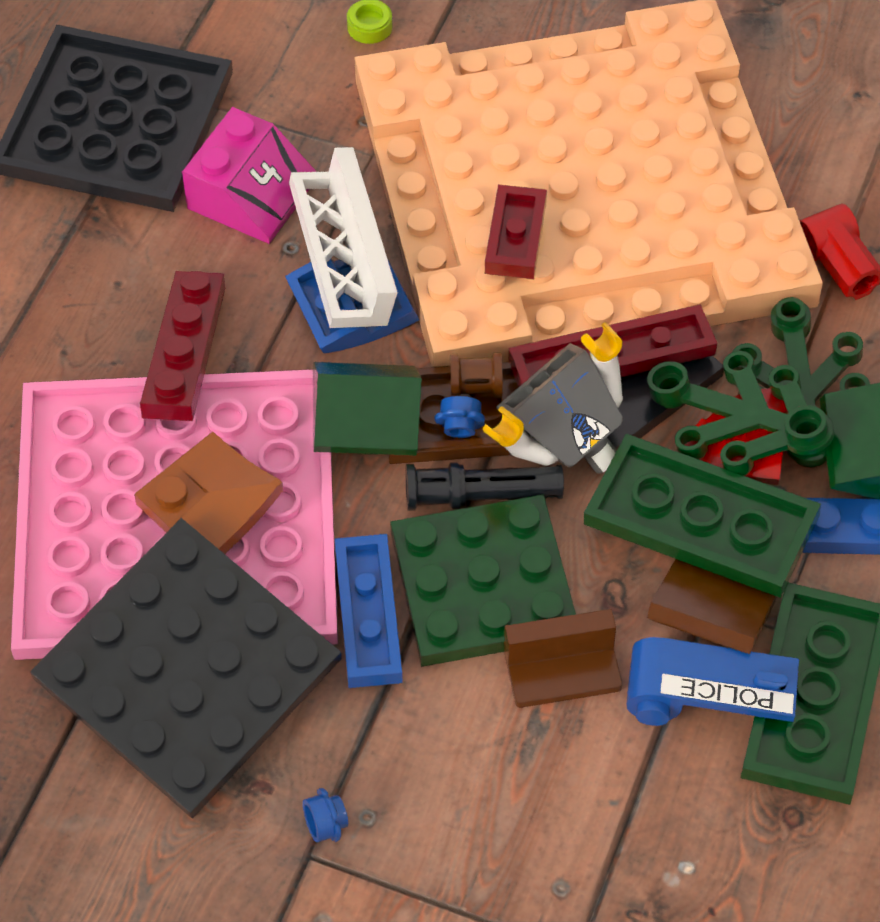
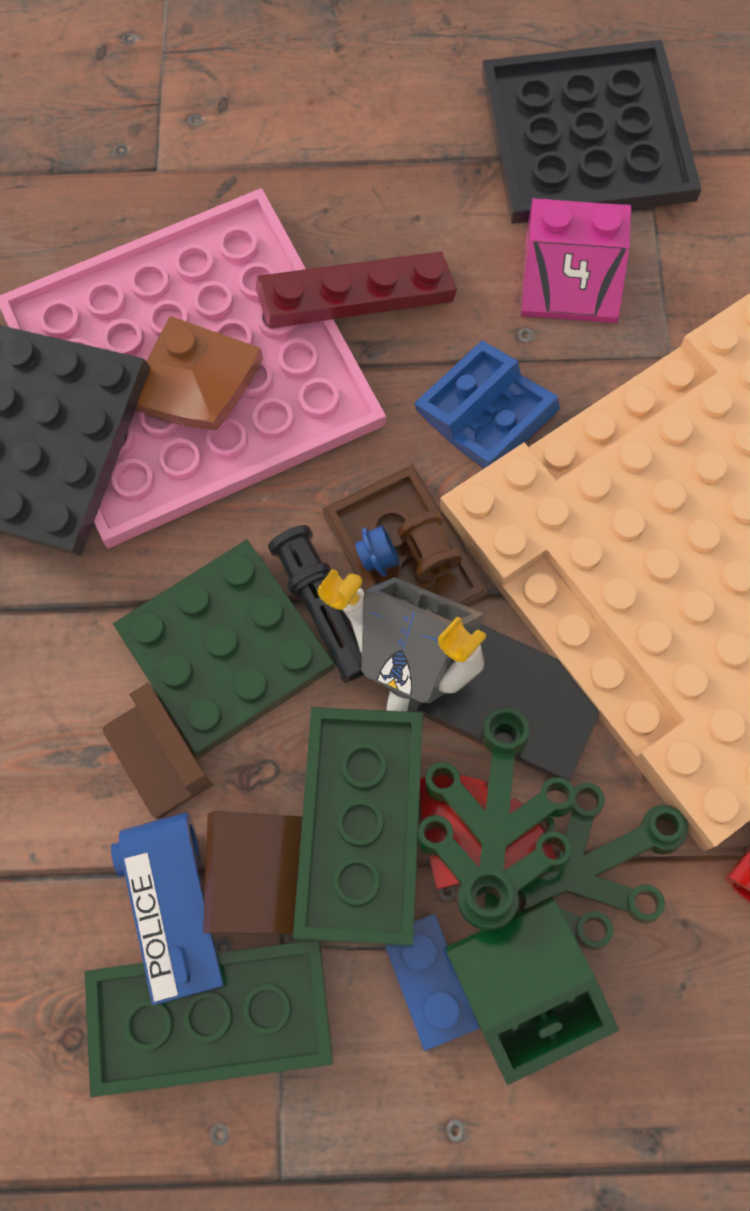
camera: 70 degrees right, 15 degrees up
(359, 234) = (540, 374): white fence -> none
(366, 408) = (353, 460): dark green slope -> none
(368, 611) = (144, 559): blue plate -> none
(515, 231) = (606, 509): dark red plate -> none
(646, 342) = (531, 670): dark red plate -> none

